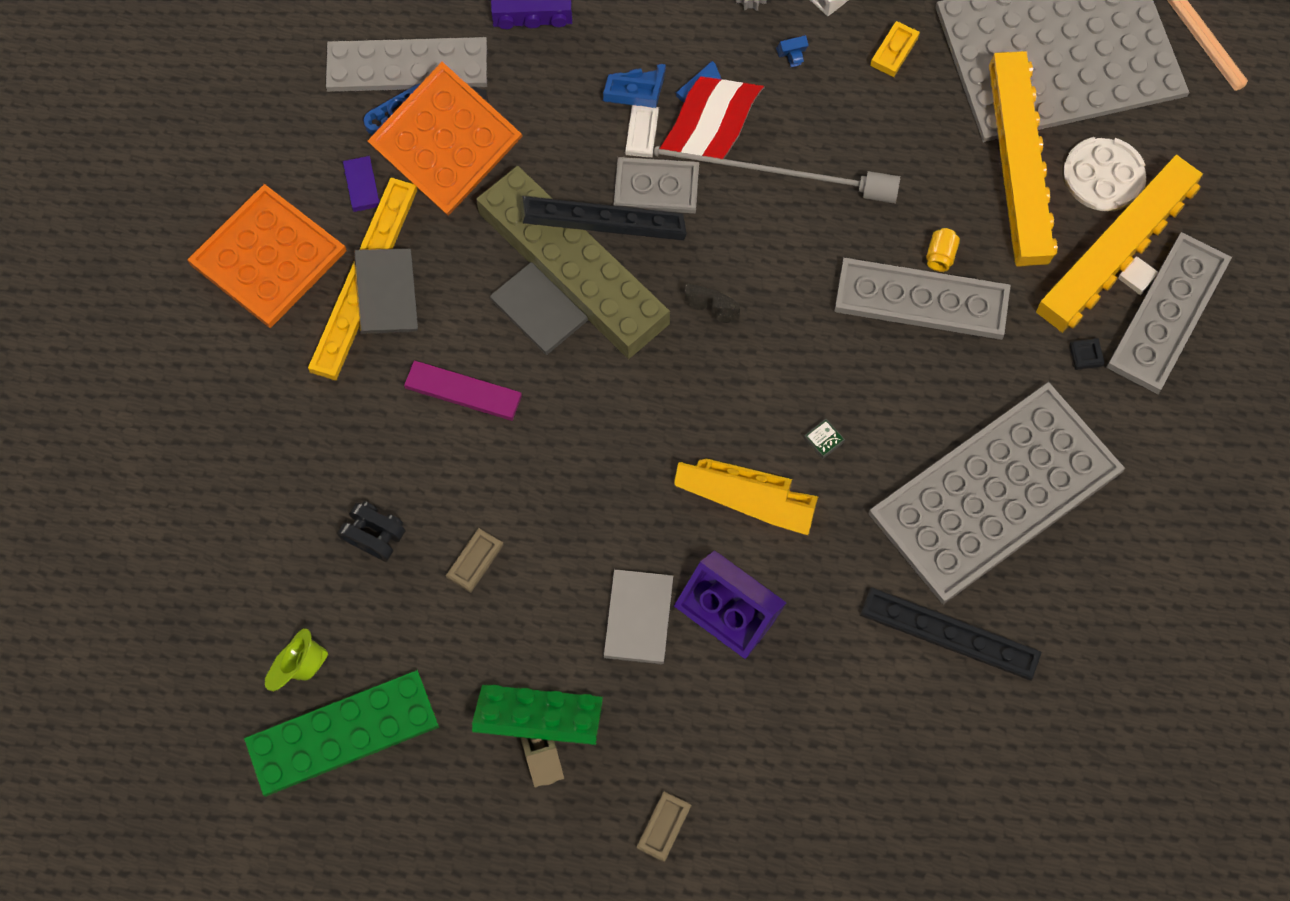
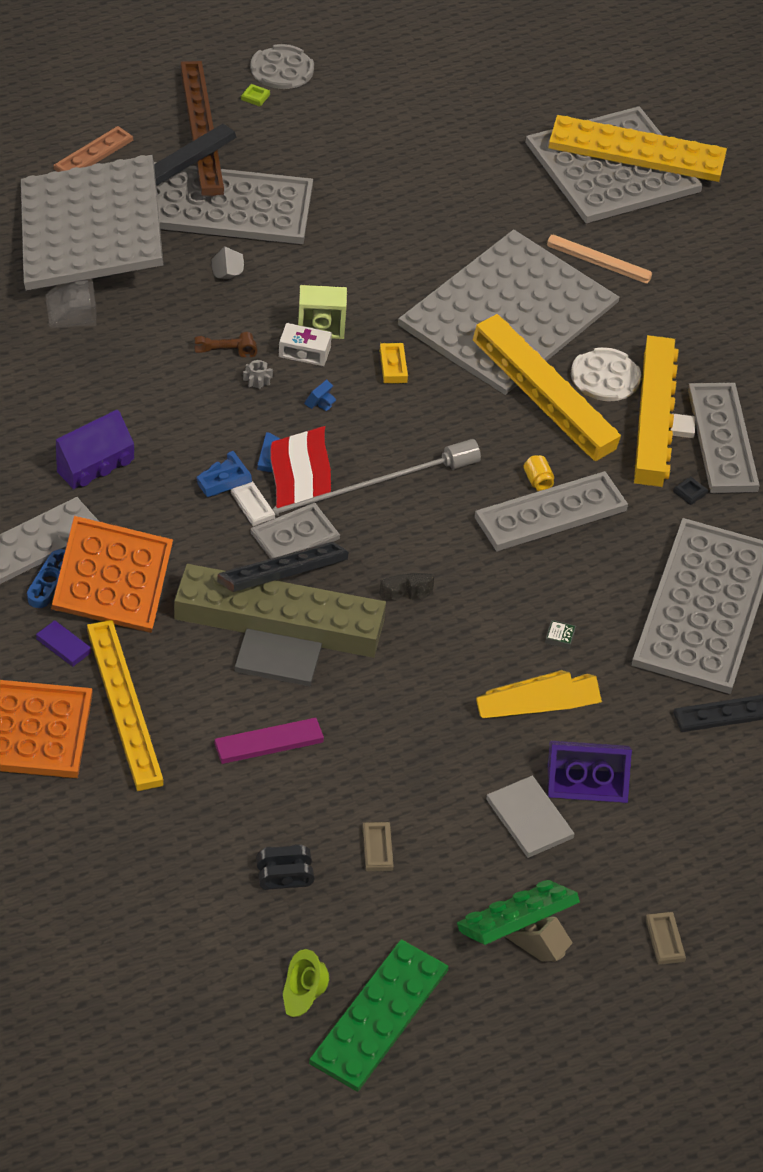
camera: 40 degrees left, 20 degrees down
(385, 291) = (152, 701): dark grey tile -> none

